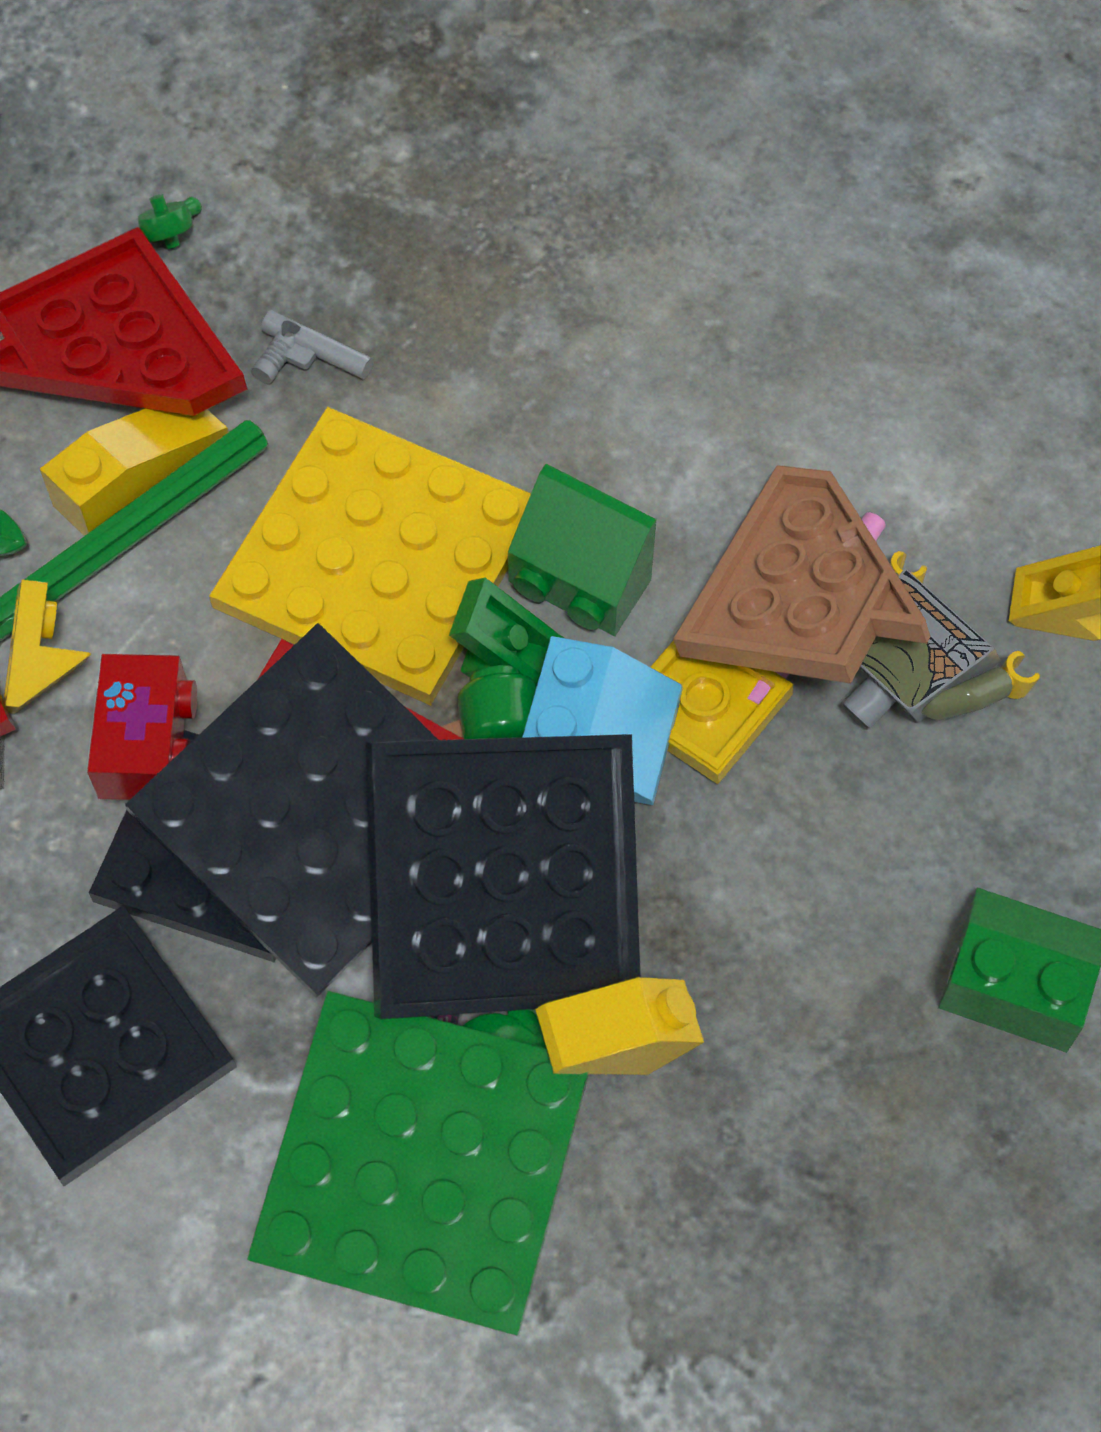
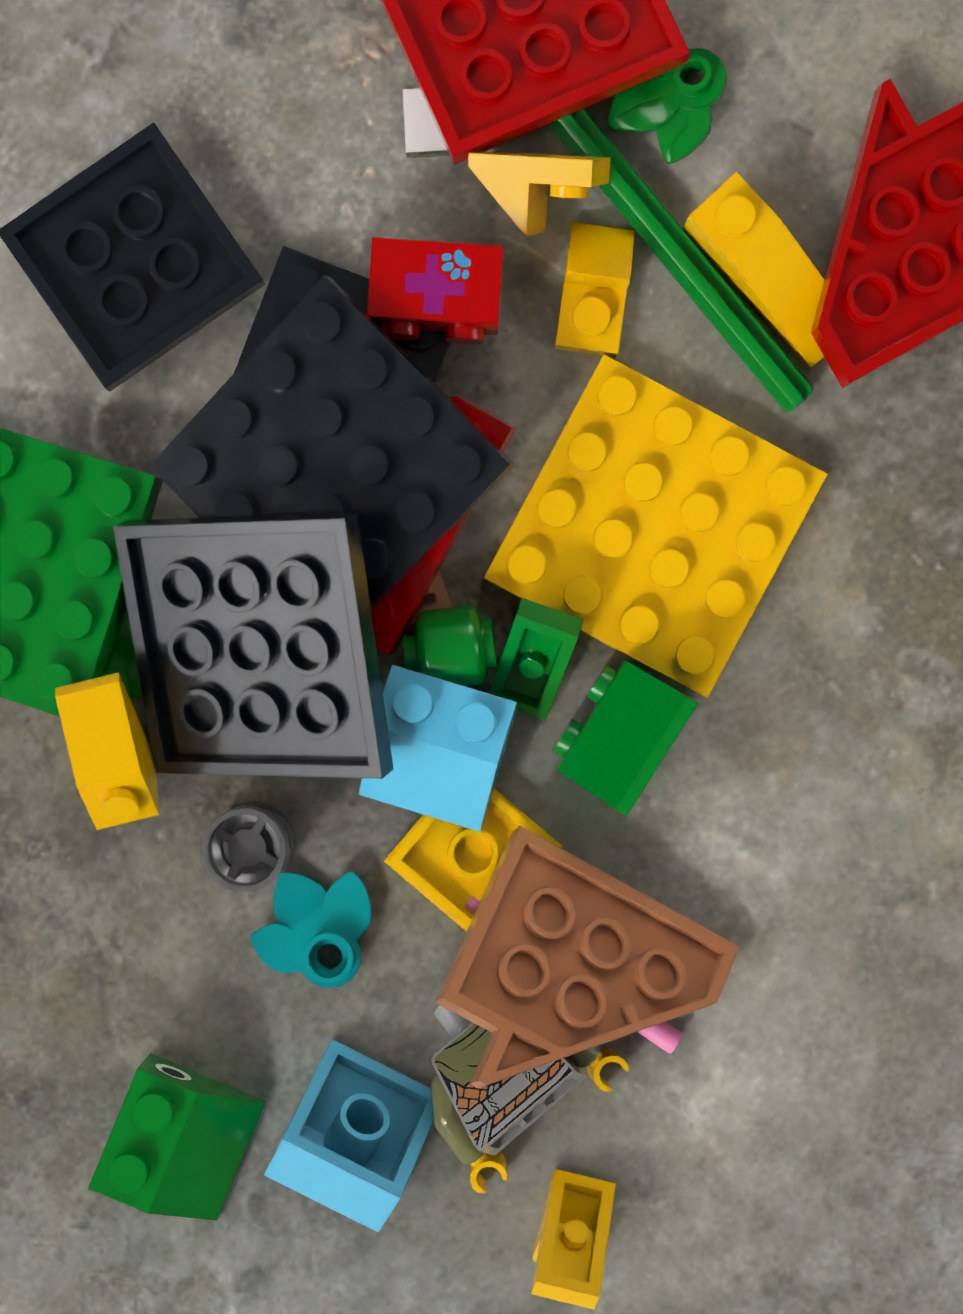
camera: 90 degrees right, 25 degrees up
(144, 610) = (595, 289): none -> yellow slope
(303, 350) = (907, 449): light grey hose -> none
(708, 880) = (248, 847): none -> flat silver wheel
(783, 847) = (311, 918): none -> teal plate
(1000, 791) = (354, 1136): none -> medium azure slope

